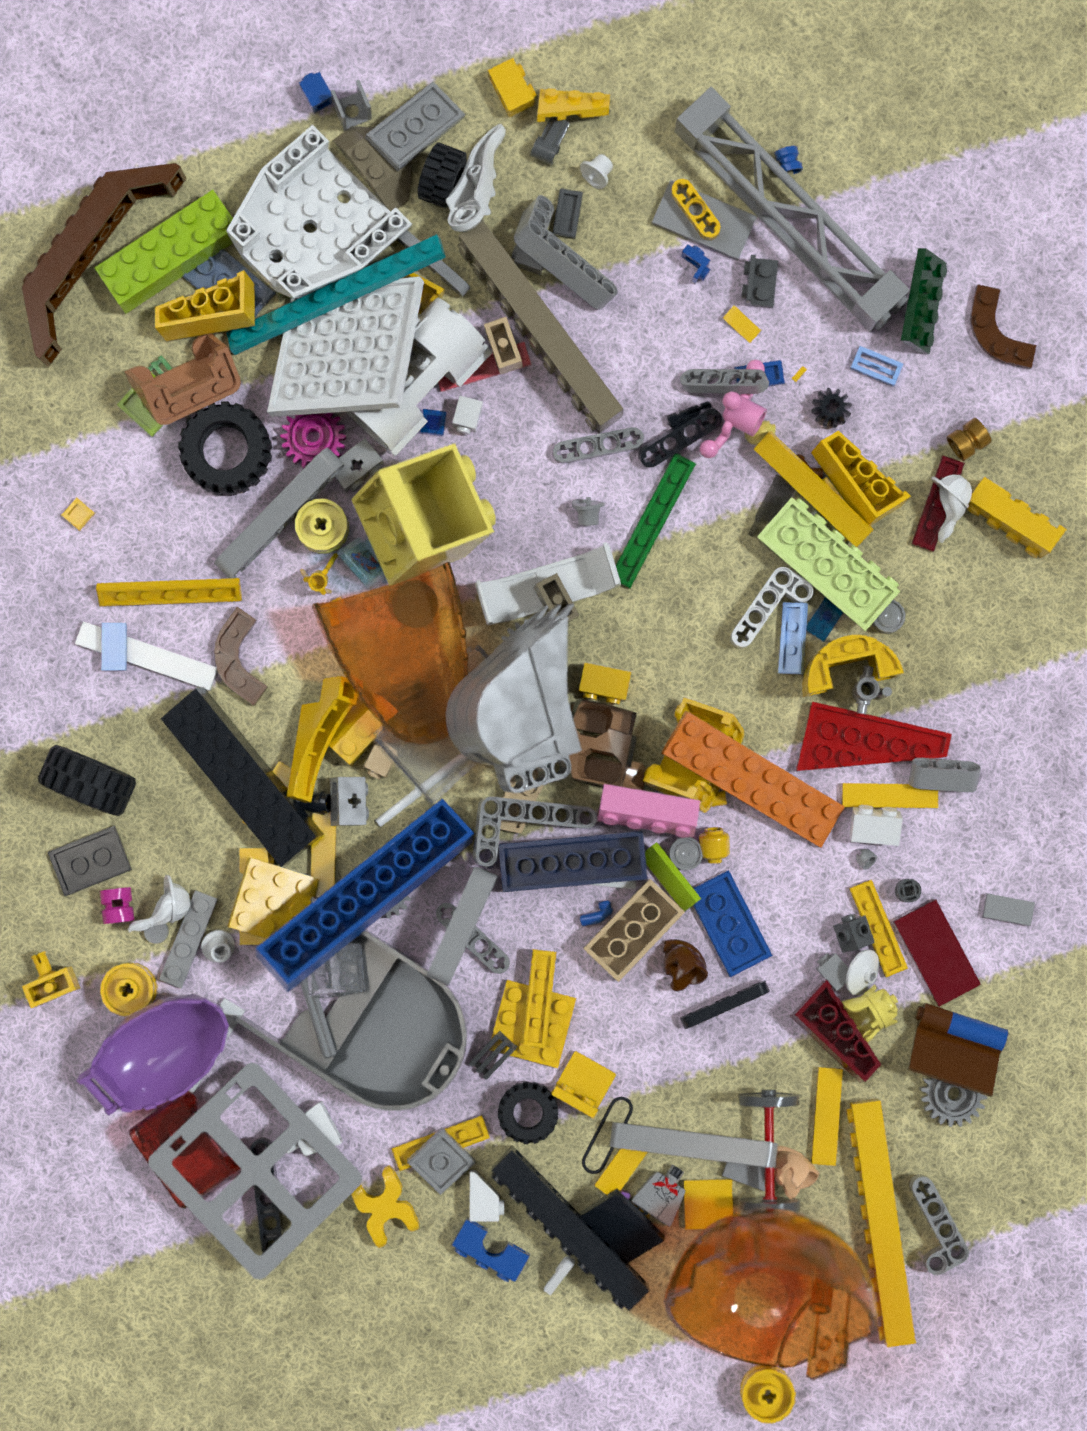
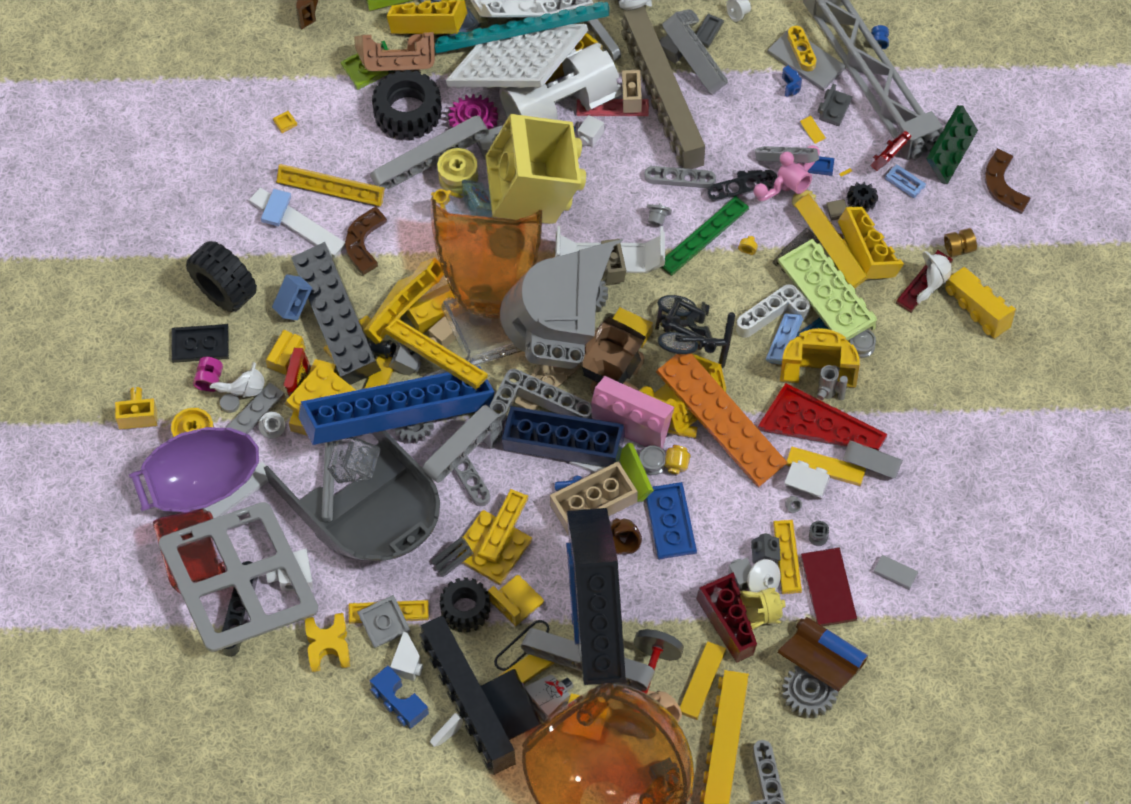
camera: 20 degrees right, 25 degrees down
(181, 774) = (291, 297): none -> medium blue brick
(199, 845) = (280, 354): none -> yellow brick
(226, 878) = (297, 371): none -> red container
(386, 804) = (436, 353): none -> yellow tile
(678, 711) = (682, 340): none -> black piece
(695, 1110) = (595, 596): none -> black panel
(712, 520) = (748, 245): none -> yellow tile
(725, 1004) = (649, 573): black beam -> none
(805, 433) = (836, 208): none -> dark tan tile
(851, 338) = (890, 151): none -> container

